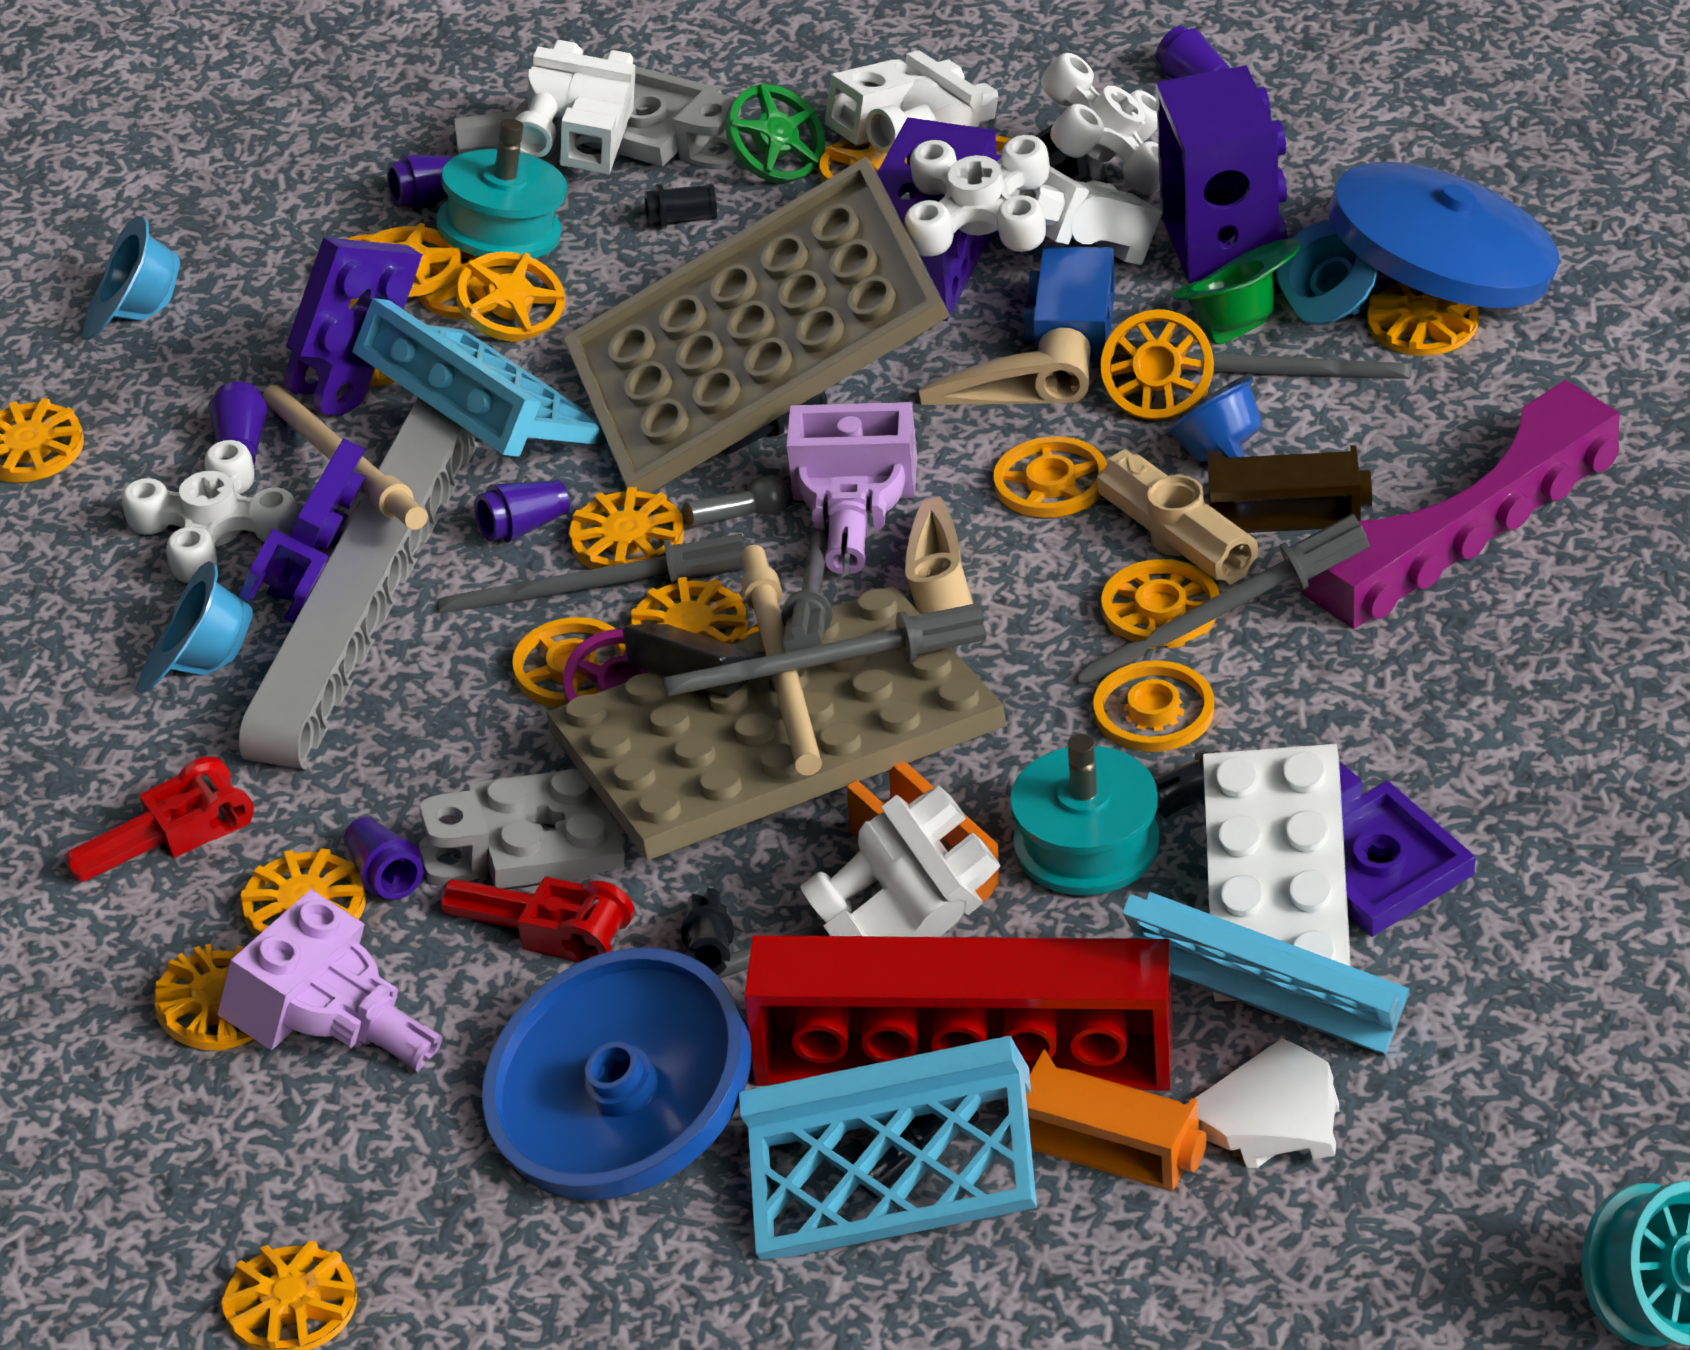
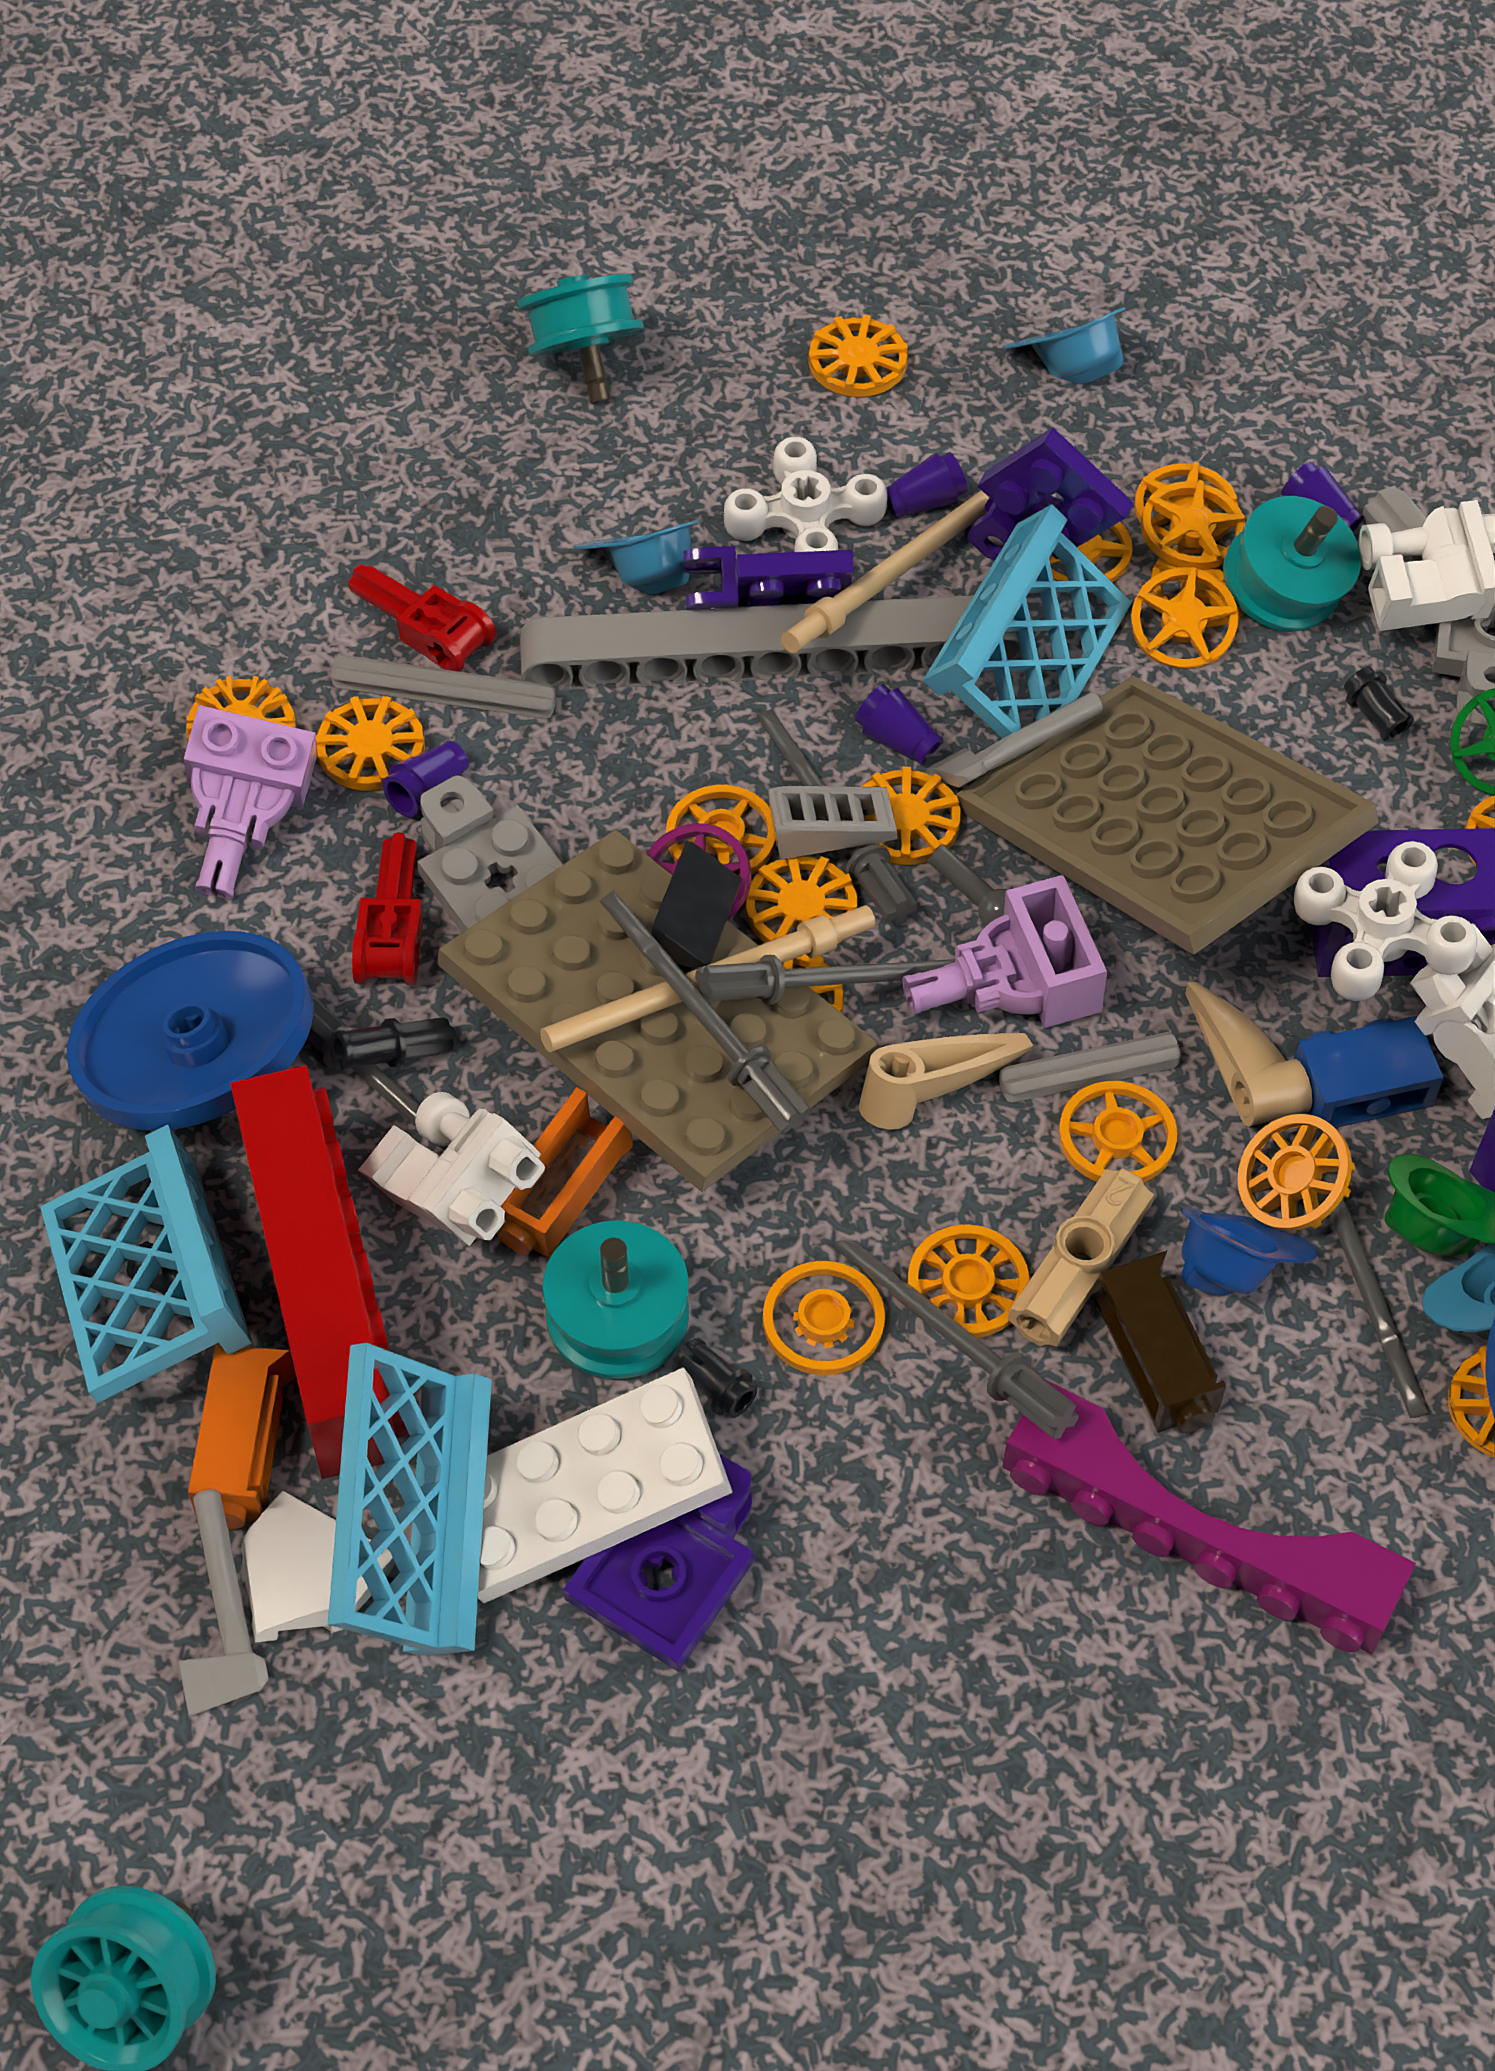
camera: 65 degrees right, 15 degrees up
(262, 830) = (443, 686): none -> light grey axle
(609, 463) = (966, 766): none -> light grey piece
(615, 580) = (800, 834): none -> light grey slope
(974, 475) = (1089, 1067): none -> light grey axle
(1359, 1181) = (240, 1671): none -> light grey piece

